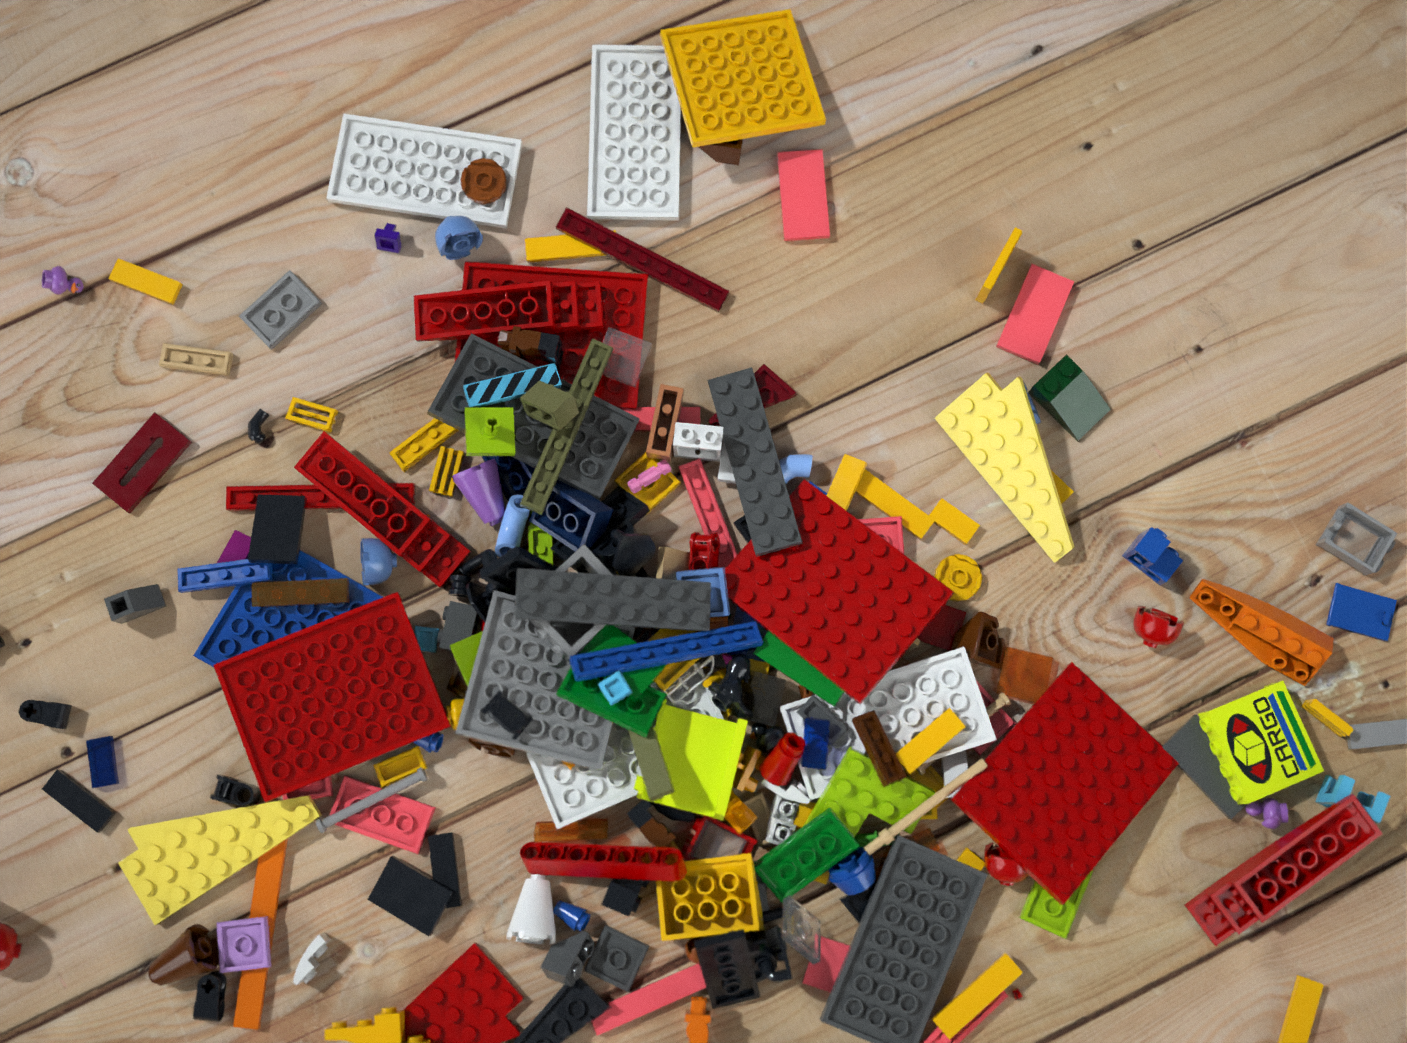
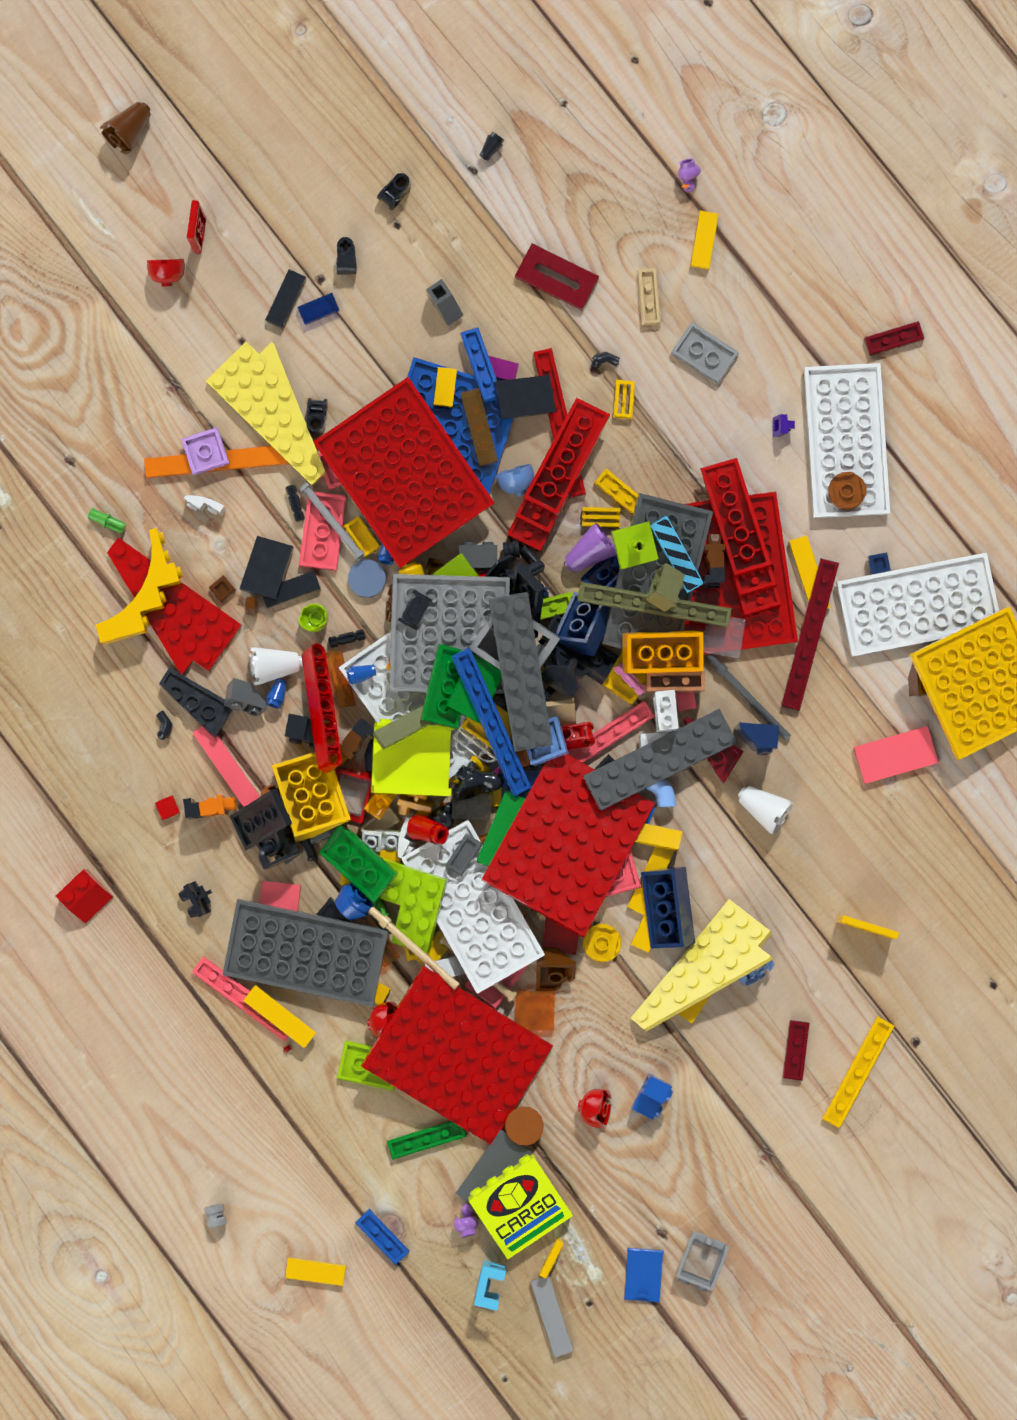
camera: 80 degrees right, 5 degrees up
(186, 957) = (187, 411): reddish brown cone -> none
(210, 1000) = (158, 436): black piece -> none
(240, 623) = (445, 387): none -> yellow tile
(319, 94) = (894, 338): none -> dark red tile
(338, 842) = (295, 503): none -> black axle
(423, 958) = (222, 588): none -> reddish brown tile
(427, 638) = (465, 533): medium azure tile -> none
(453, 771) = (367, 578): none -> sand blue tile
(454, 925) = (251, 606): none -> reddish brown tile
(457, 236) = (795, 480): medium blue cylinder -> none
(487, 848) = (313, 618): none -> lime hair
(511, 526) = (564, 579): light blue cylinder -> none
(522, 812) = (346, 638): none -> black axle
(571, 802) = (358, 674): none -> blue cone
(577, 165) = (879, 563): none -> dark blue plate
(615, 688) = (452, 687): medium azure tile -> none
(616, 958) = (252, 735): dark grey tile -> none
(626, 427) = (662, 652): none -> light orange brick
(662, 368) = (722, 670): none -> dark grey bar
(753, 338) = (759, 737): none -> dark blue slope
(801, 930) = (301, 870): clear tile -> none
(817, 743) = (444, 853): clear blue tile -> none
(835, 352) = (765, 807): none -> white cone
(878, 748) = (450, 902): reddish brown tile -> none
(929, 740) = (465, 941): yellow tile -> none
(932, 489) = (668, 907): none -> dark blue slope
(1035, 314) = (835, 966): coral tile -> none
(1070, 398) = (769, 1007): slope -> none
(1125, 379) = (796, 1050): none -> dark red tile
(1158, 844) = (425, 1139): none -> green tile
(1163, 315) = (858, 1072): none -> yellow tile
(1163, 717) = (524, 1126): none -> dark orange tile
(1260, 932) = (382, 1236): none -> blue tile
(1266, 631) = (611, 1197): orange wedge -> none
(1283, 870) = (423, 1237): red slope -> none

